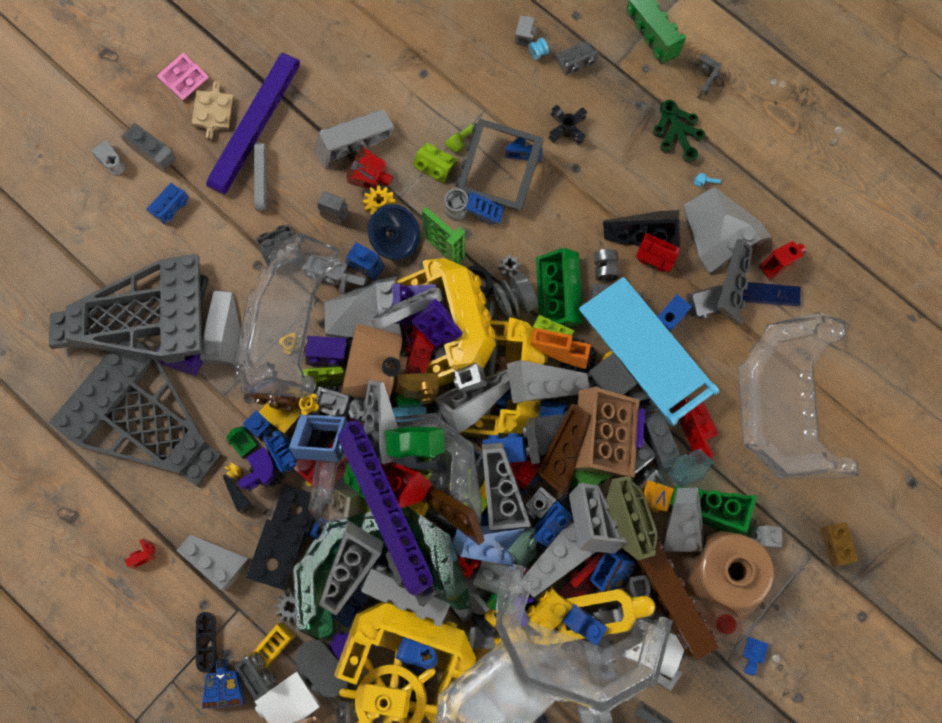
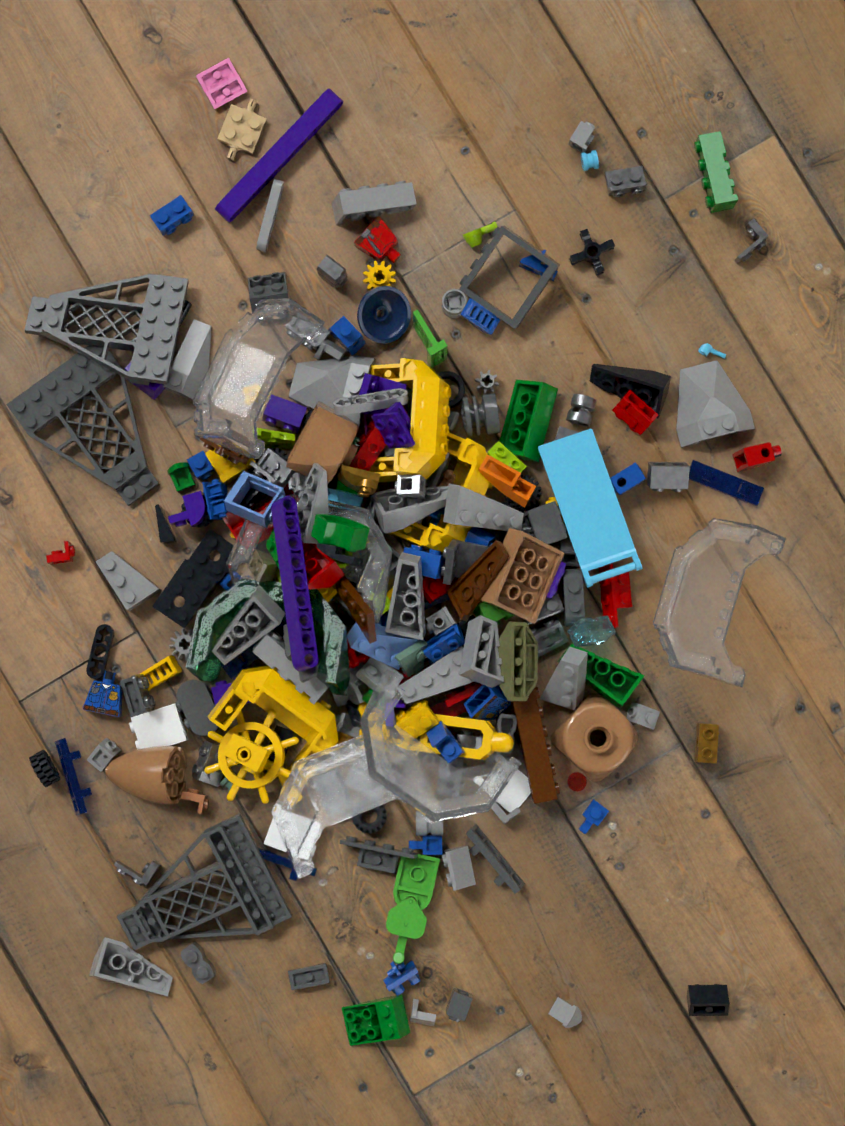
camera: 20 degrees right, 10 degrees up
(107, 156) = (125, 148): light grey piece -> none
(148, 147) = (168, 152): dark grey brick -> none
(234, 471) = (167, 503): yellow plate -> none
(304, 404) = (249, 465): yellow plate -> none
(396, 364) = (344, 455): black bush -> none
(413, 652) = (283, 719): blue piece -> none
(434, 162) = (446, 251): lime bracket -> none
(658, 496) = (552, 647): light orange brick -> none
(678, 128) = (702, 288): dark green plant -> none
(731, 298) = (689, 479): dark grey wing -> none

